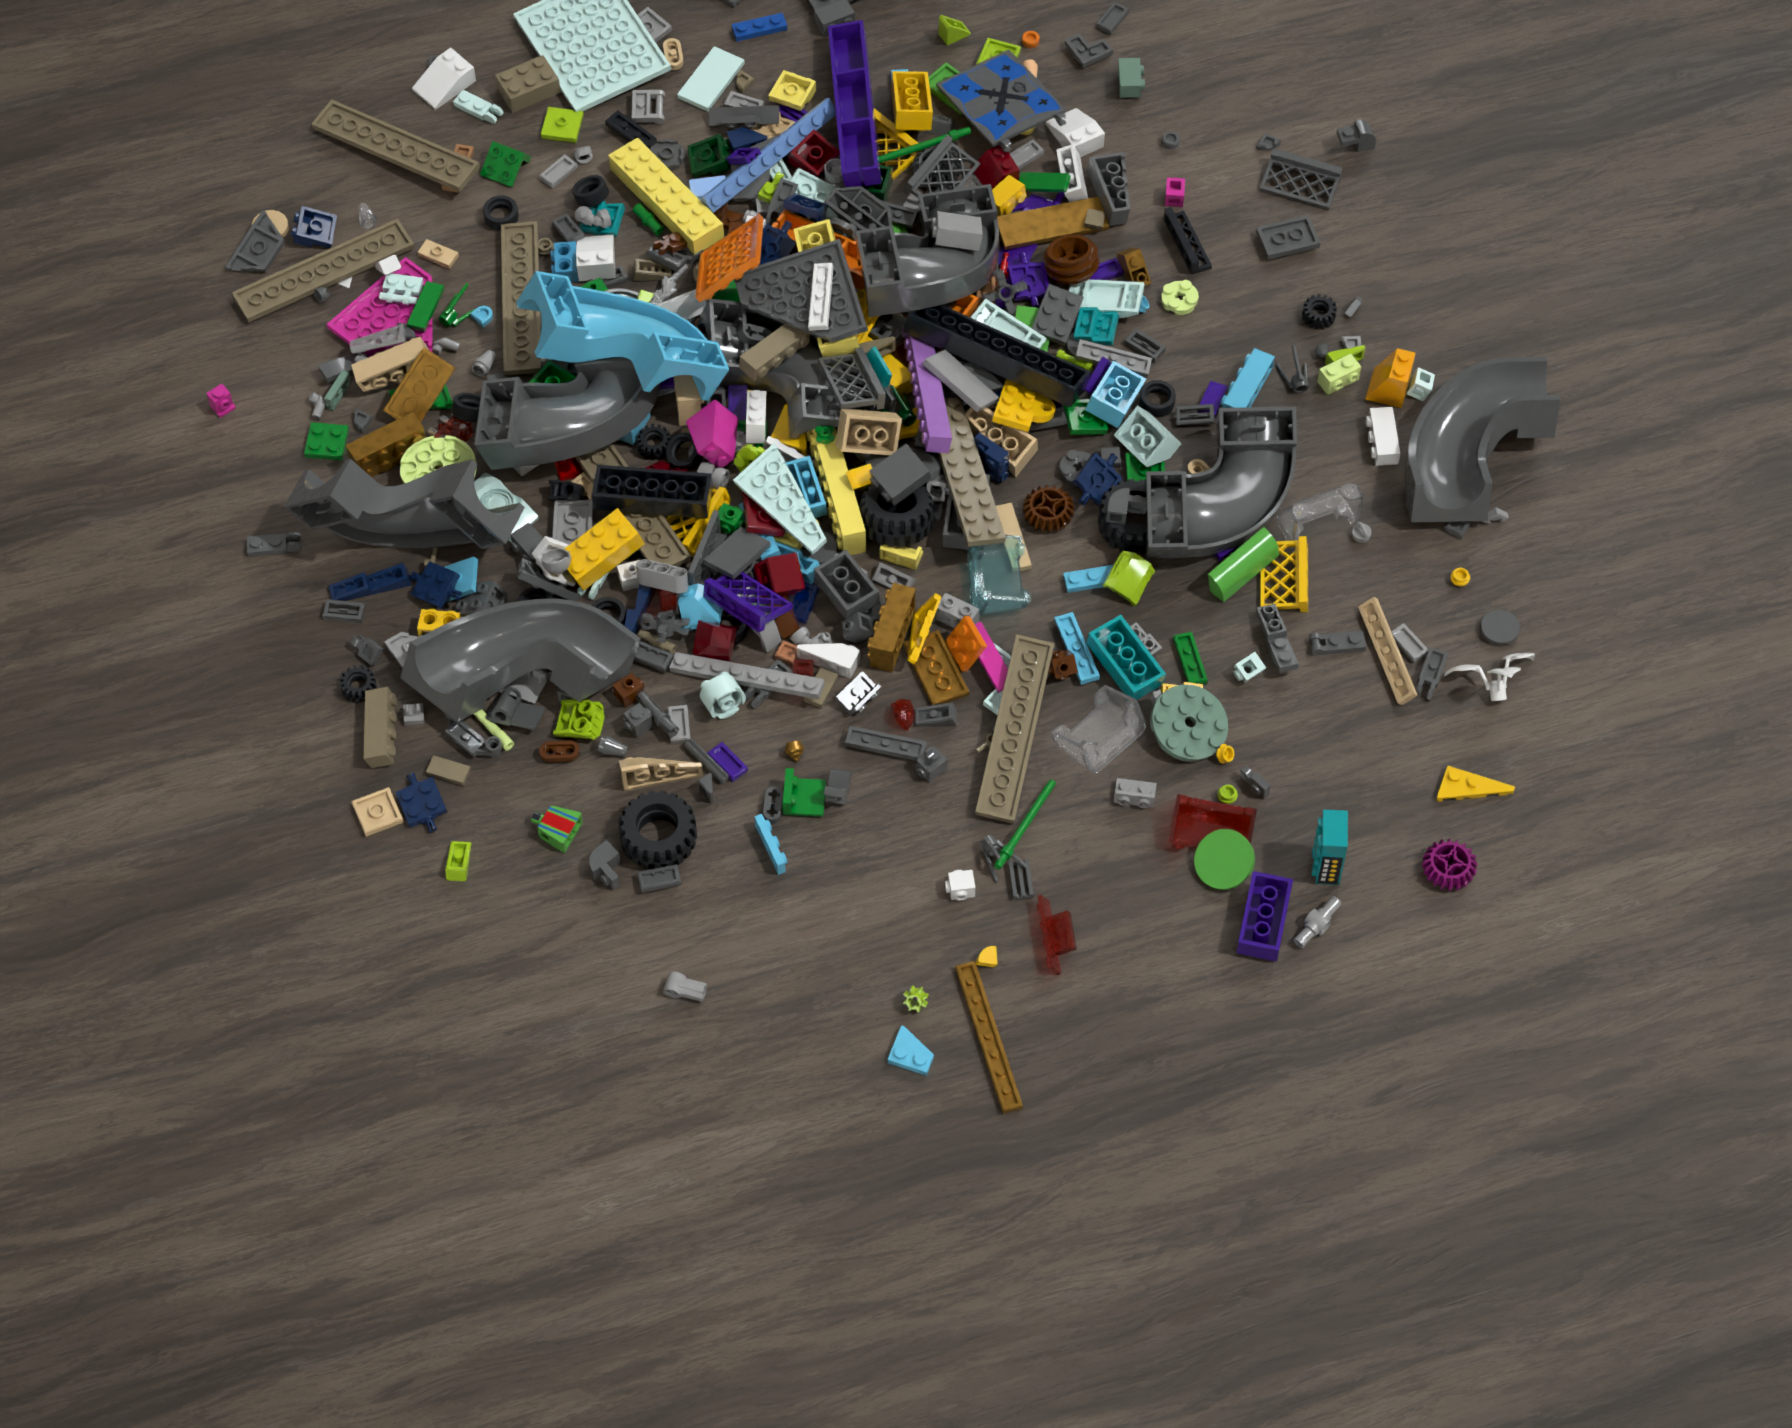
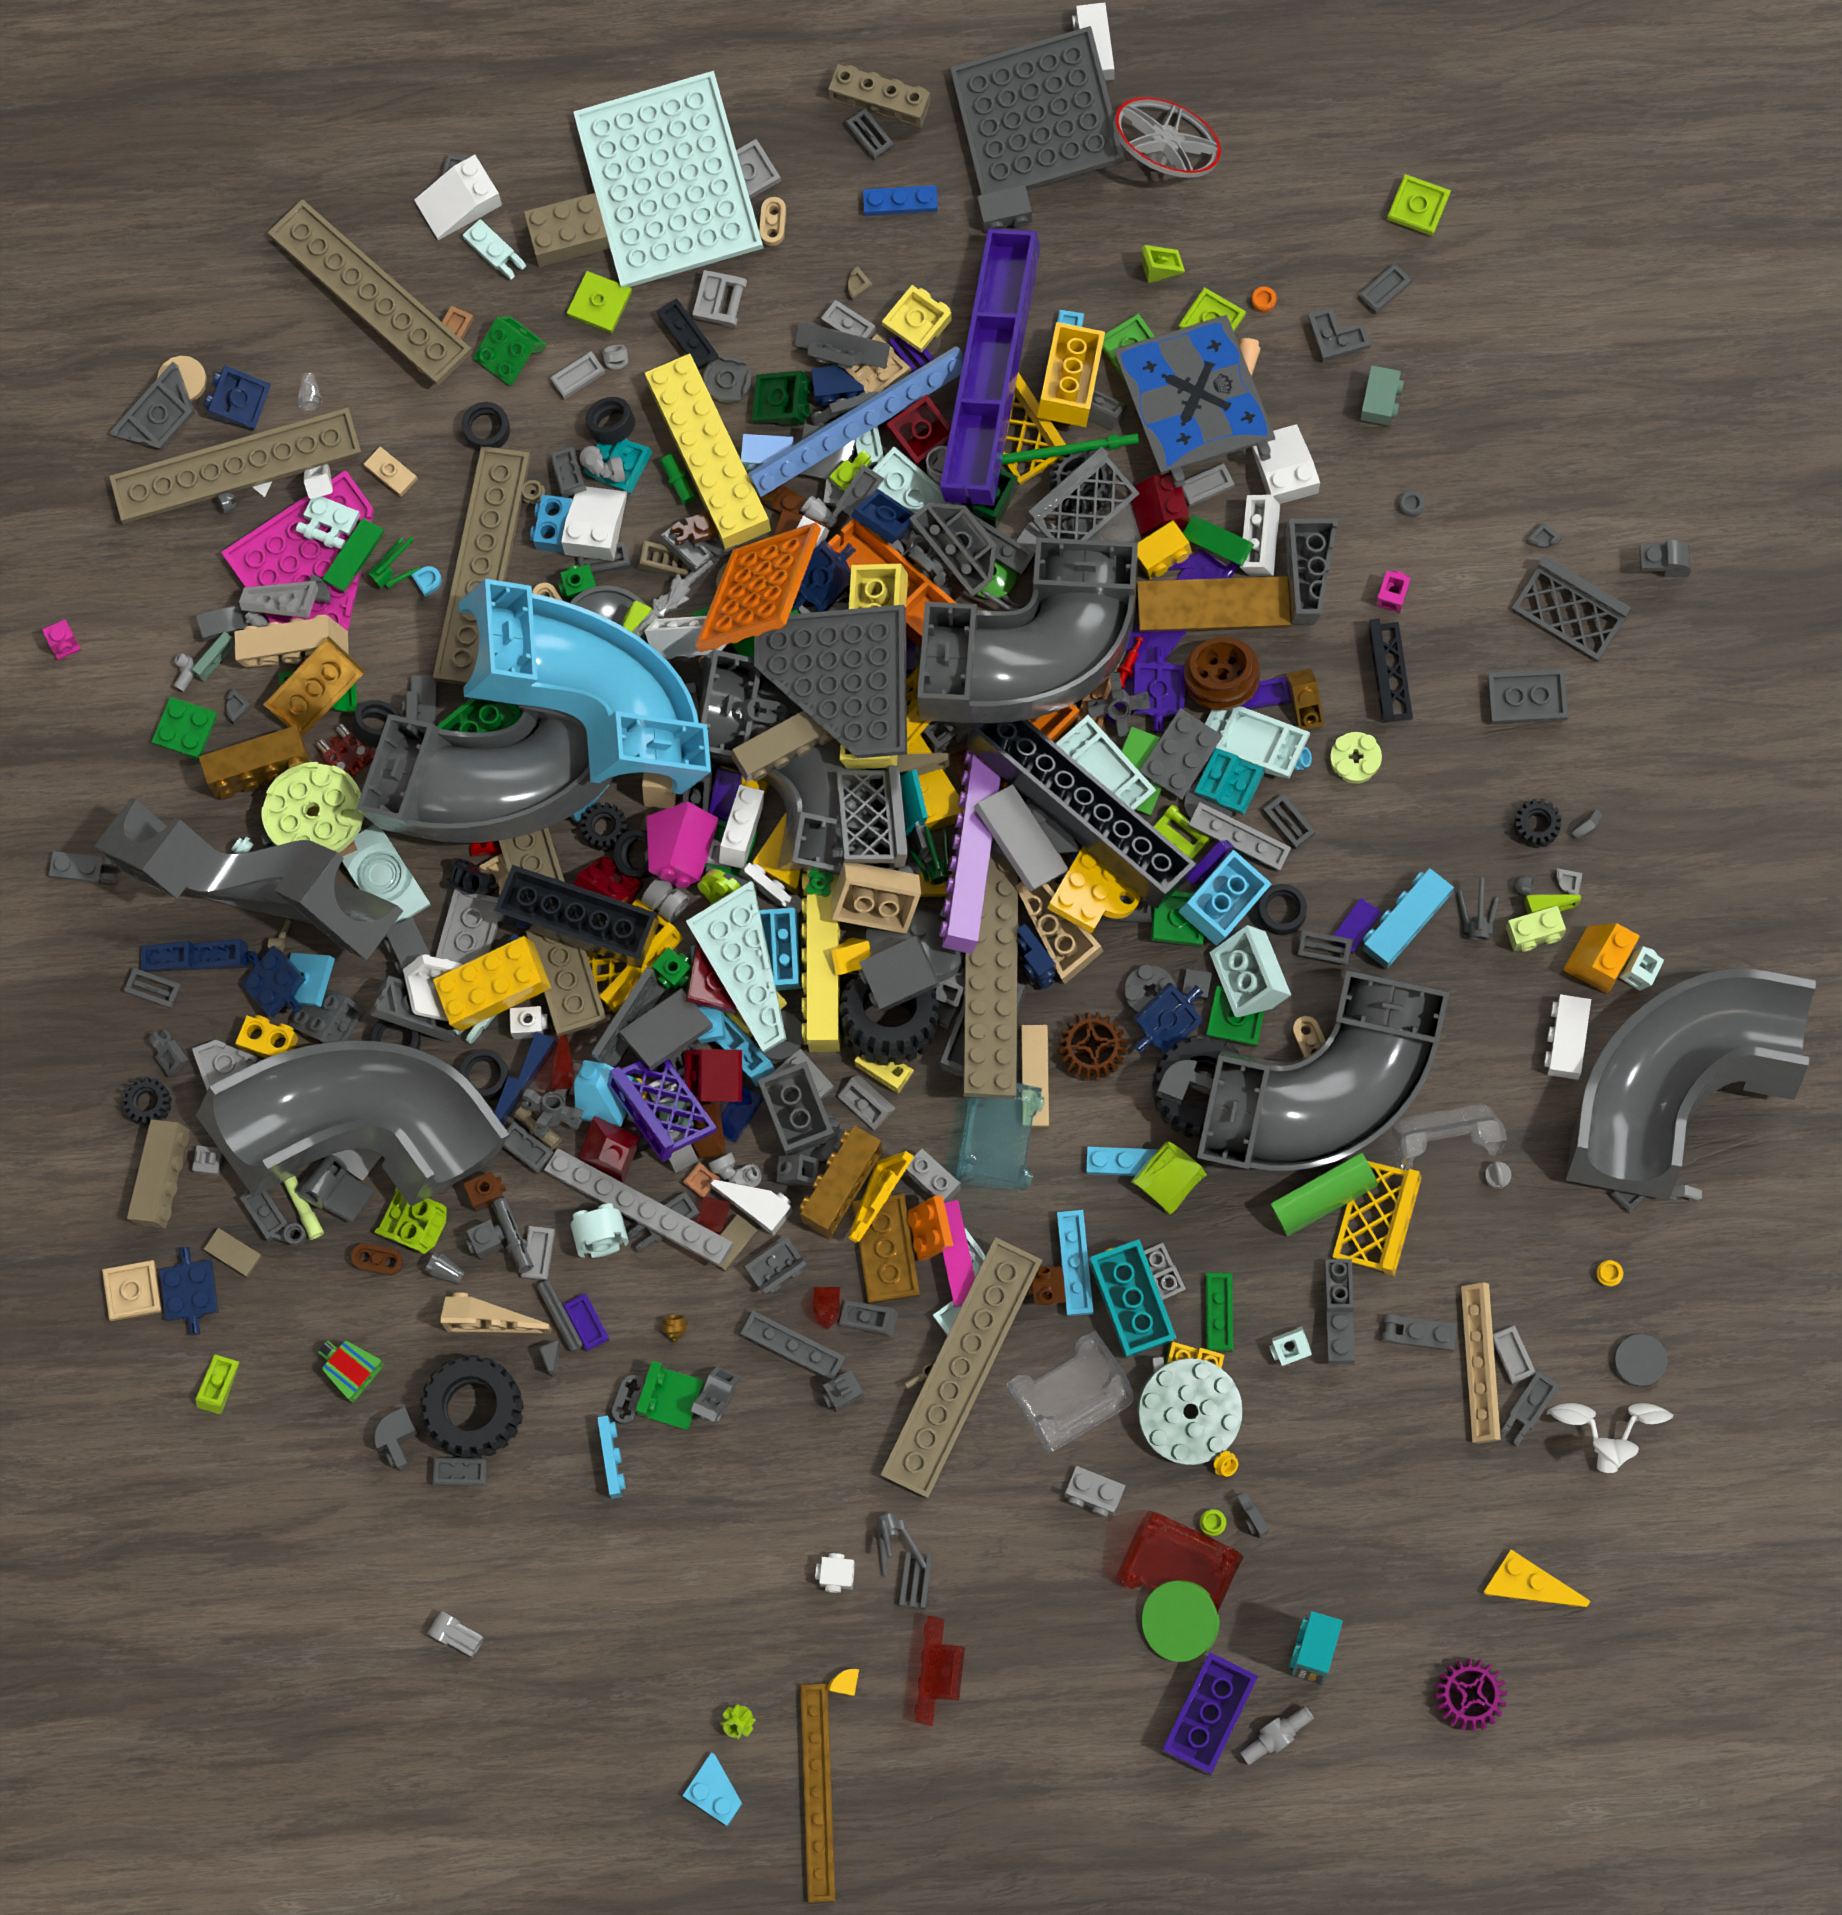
camera: 20 degrees right, 15 degrees up
(444, 343) = (367, 614): light grey arm -> none
(483, 364) = (411, 657): light grey cone -> none
(556, 560) = (428, 994): light grey hair -> none
(662, 576) = (559, 1045): light grey beam -> none
(710, 78) = (814, 271): light aqua tile -> none
(744, 157) = (826, 424): dark purple tile -> none
(820, 296) = (856, 688): white tile -> none
(957, 230) = (1070, 614): light grey brick -> none
(1007, 850) = (905, 1543): green bar -> none
(1094, 219) = (1272, 613): dark tan tile -> none

